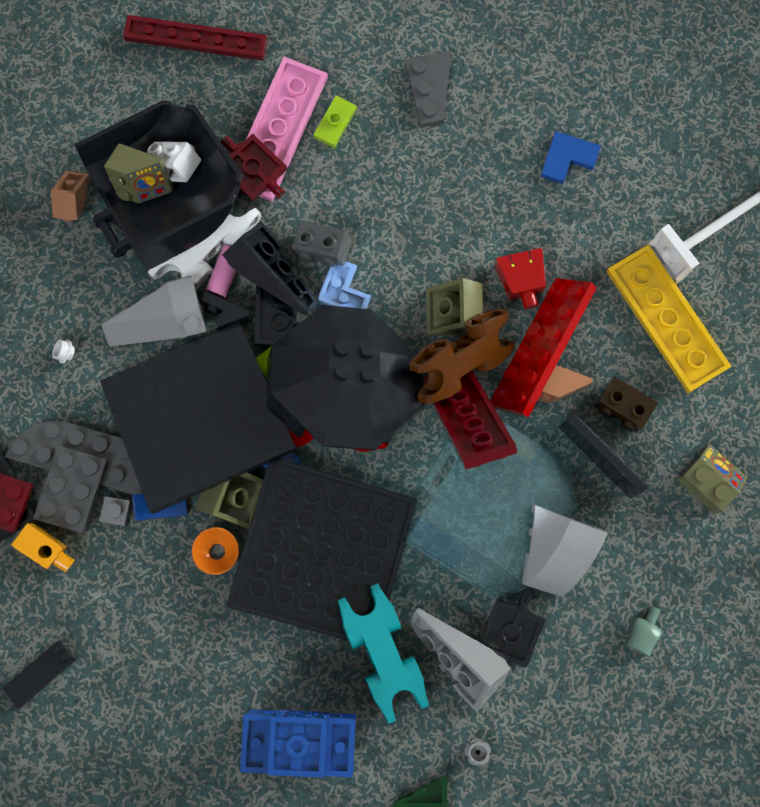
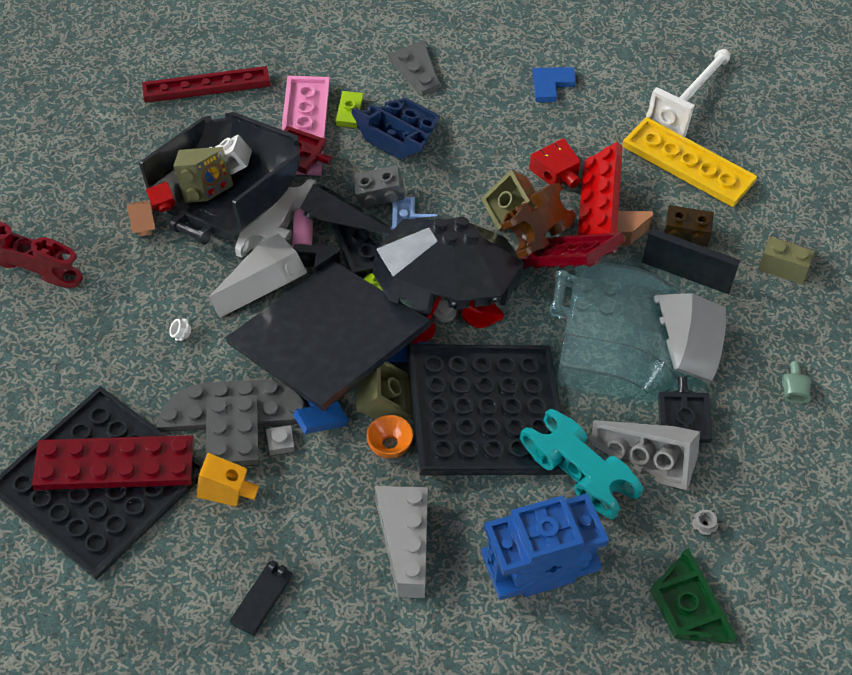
camera: 20 degrees left, 25 degrees down
(91, 187) = (161, 197): none -> red plate
(188, 663) = (405, 531): none -> light grey wedge
(375, 166) = (397, 127): none -> dark blue wedge

